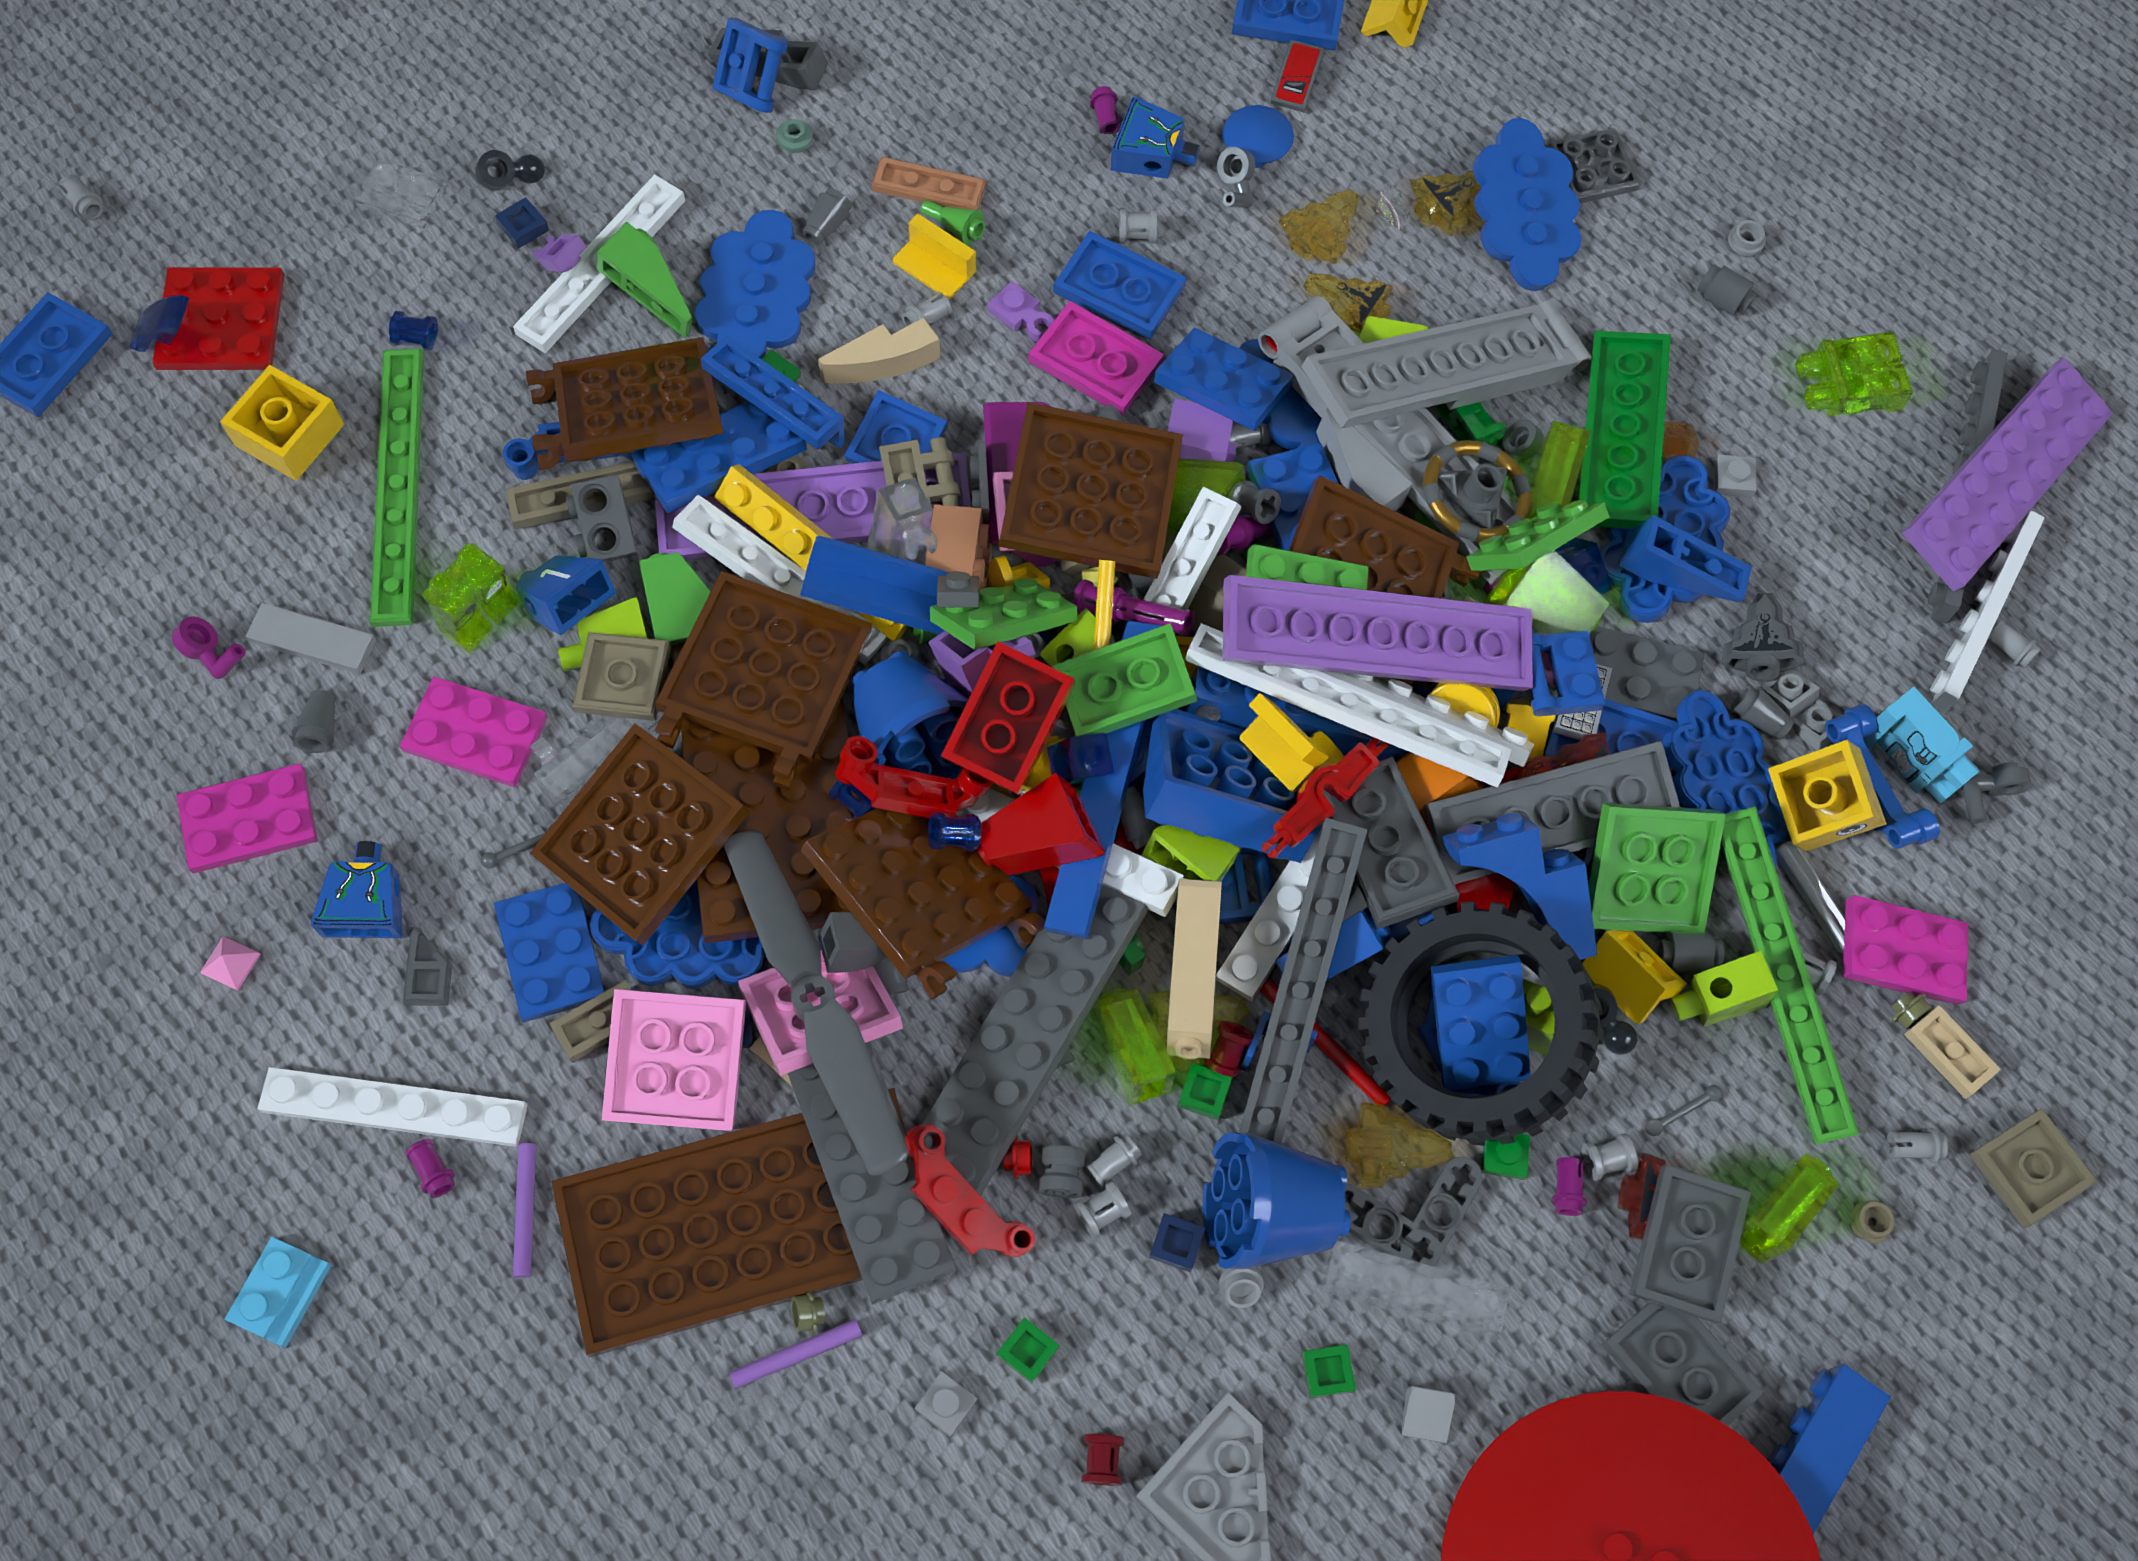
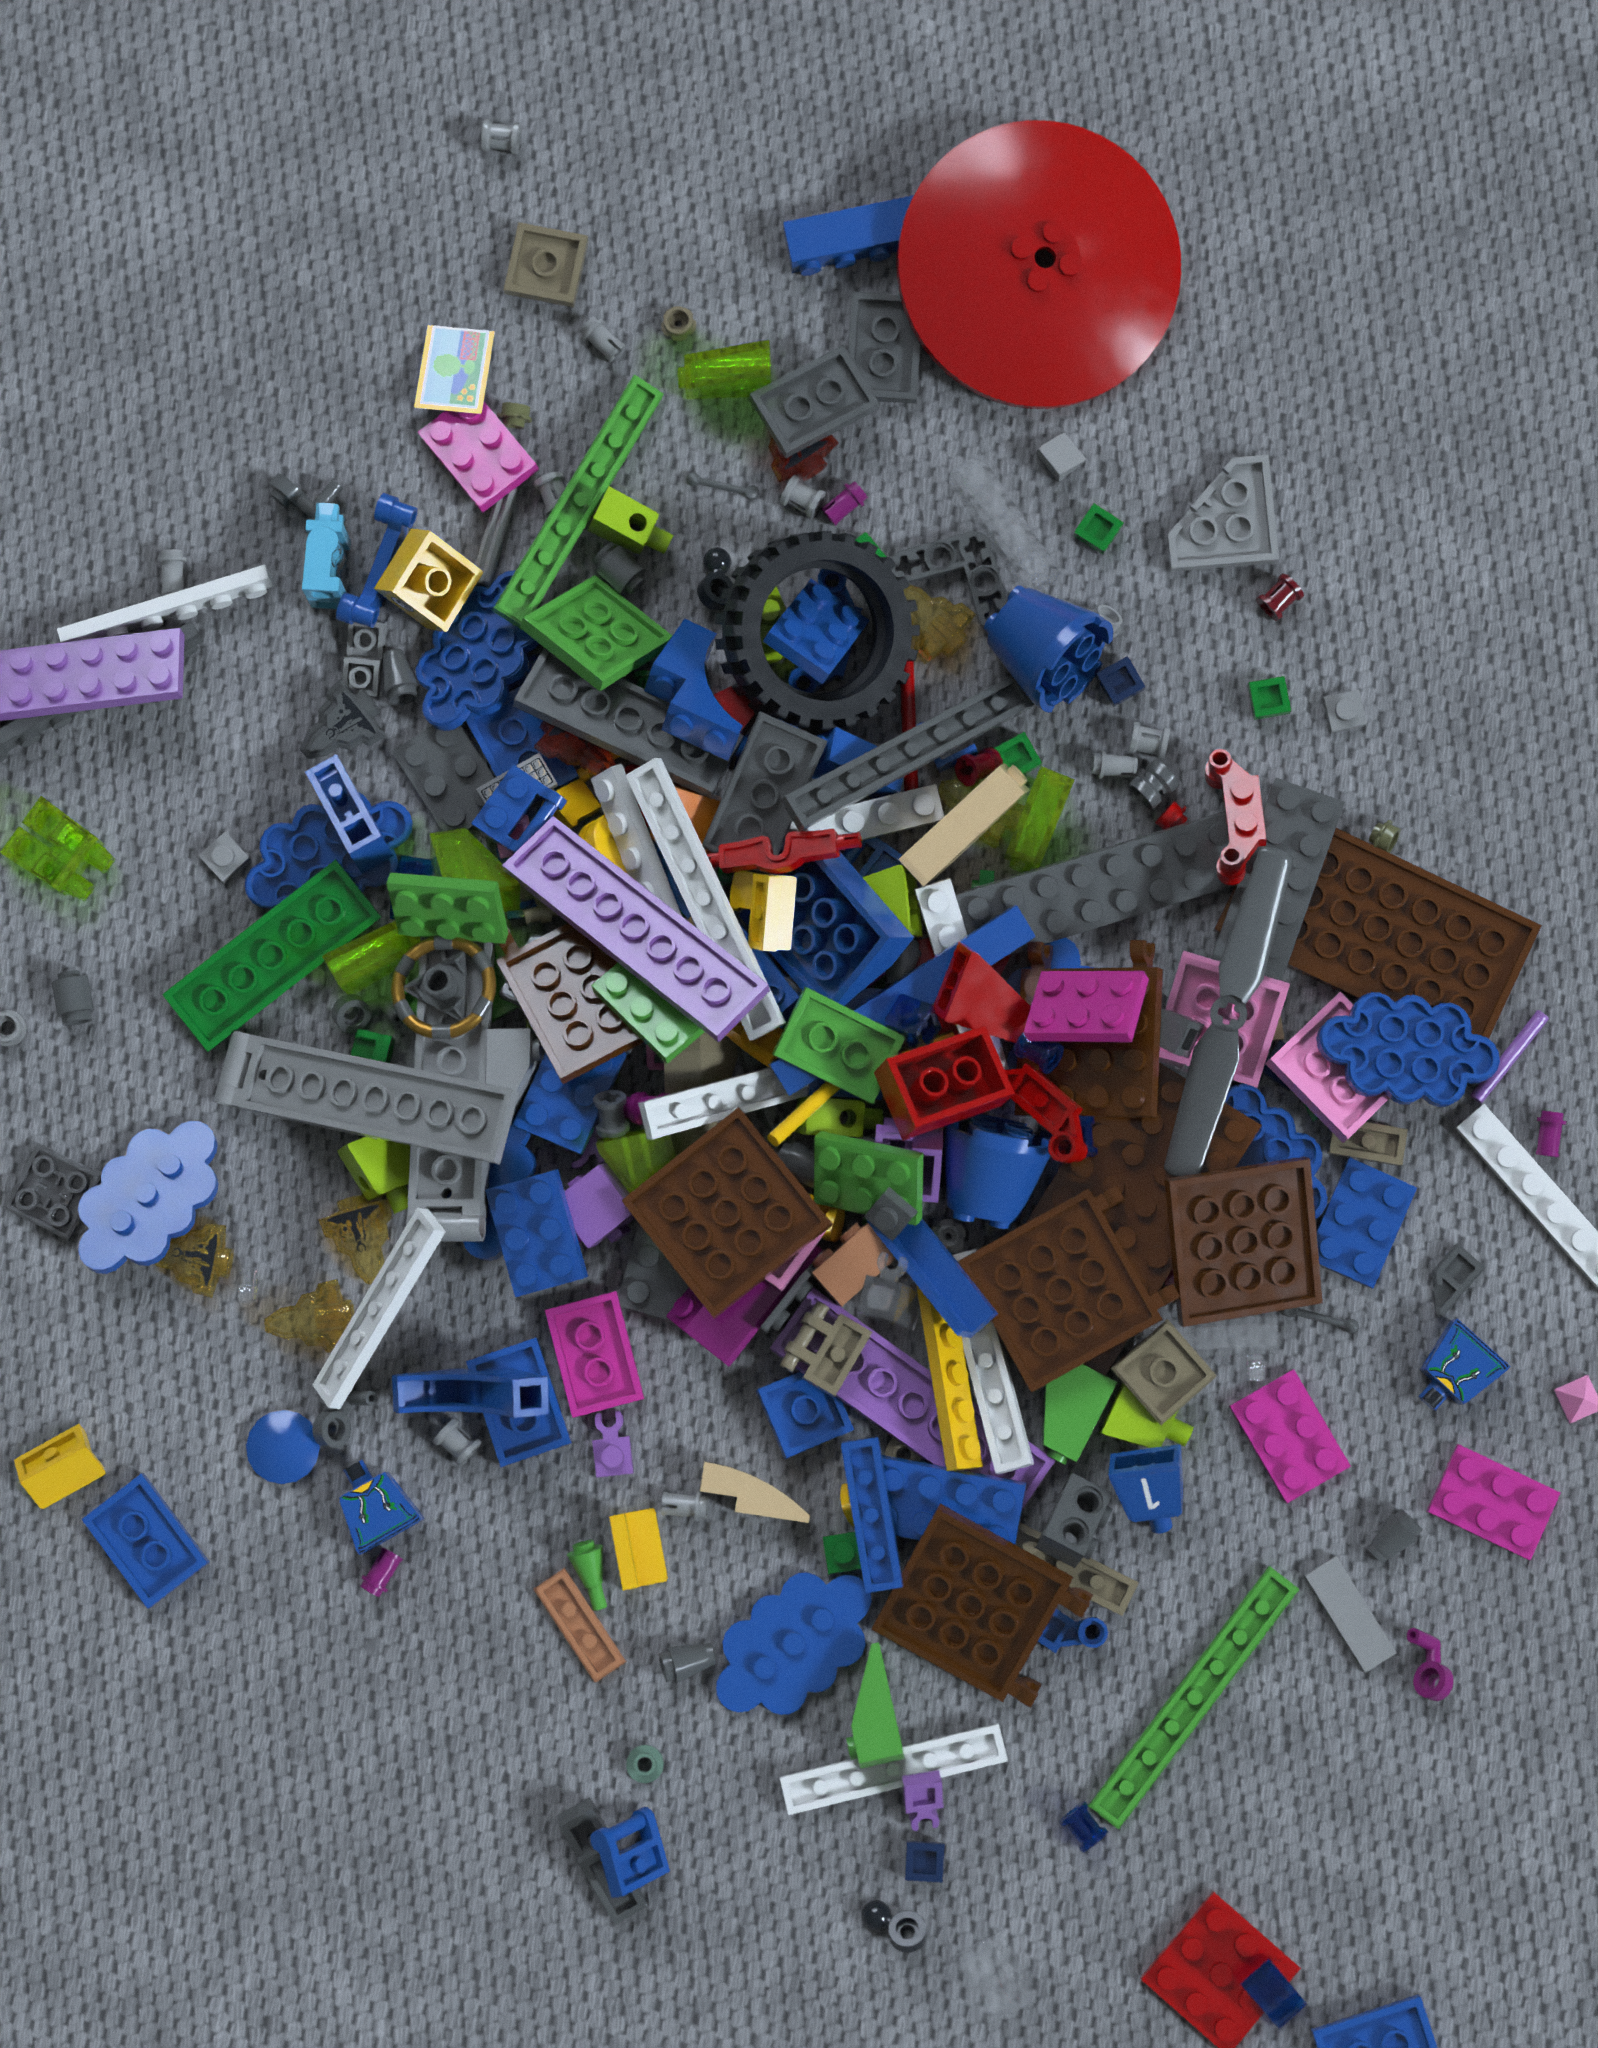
camera: 130 degrees left, 15 degrees up
(282, 422) = (1245, 1815): yellow brick -> none
(464, 591) = (1224, 1533): clear neon green hips -> none
(622, 1121) = (1408, 1049): none -> blue plate
(795, 1353) = (1410, 820): medium lavender bar -> none
(943, 885) = (1086, 1006): none -> dark pink plate
(1132, 609) = (772, 1104): magenta pin -> none
(1147, 252) = (463, 1390): none -> blue arch
(1287, 244) = (378, 1308): none -> white plate
(1297, 76) = (199, 1472): slope -> none
(1632, 973) = (671, 587): yellow panel -> none
(1679, 440) = (235, 917): clear orange slope -> none
(1952, 1052) = (518, 368): tan plate -> none
(2000, 1002) = (454, 369): none -> sticker

